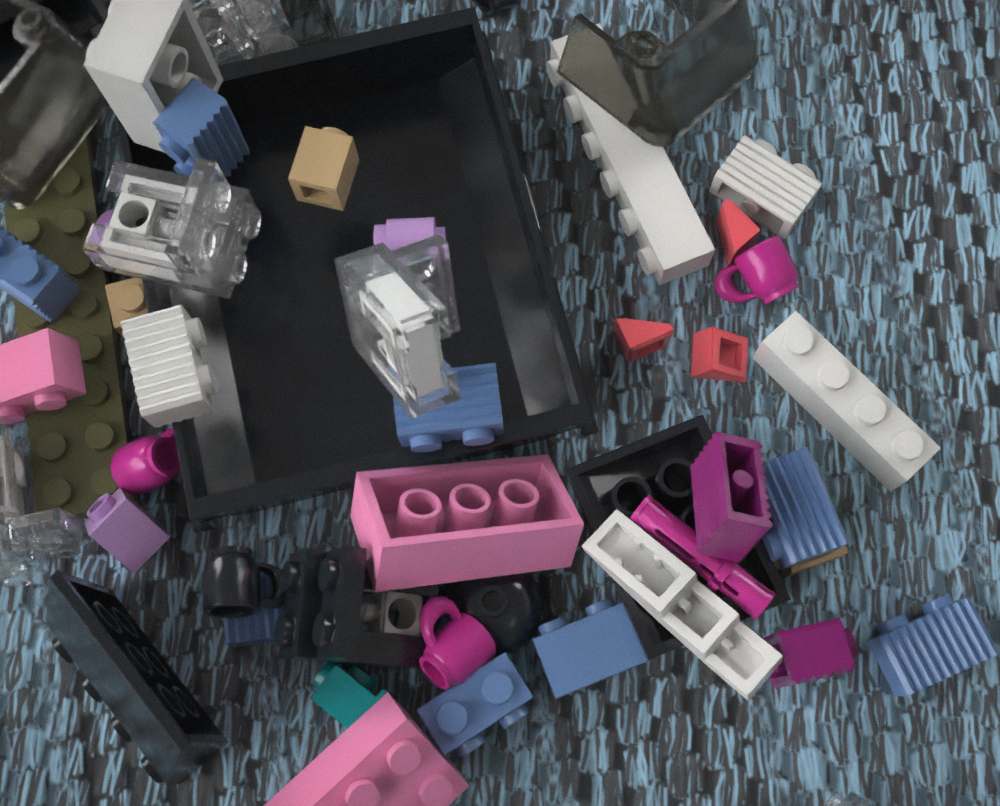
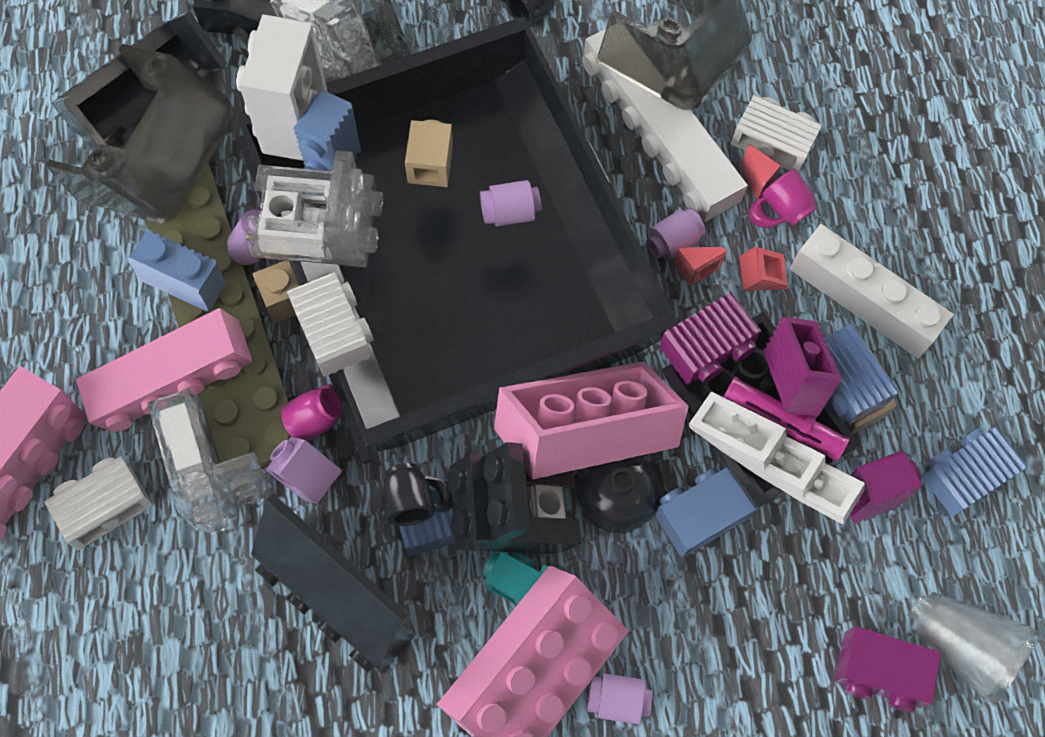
camera: 15 degrees left, 5 degrees down
(398, 314) = (520, 259): clear brick -> none
(456, 648) = (600, 522): dark pink piece -> none
(468, 709) = (623, 565): medium blue brick -> none
(471, 418) = (565, 326): medium blue brick -> none
(618, 297) = (675, 232): none -> lavender brick
(627, 443) = (710, 339): none -> magenta brick

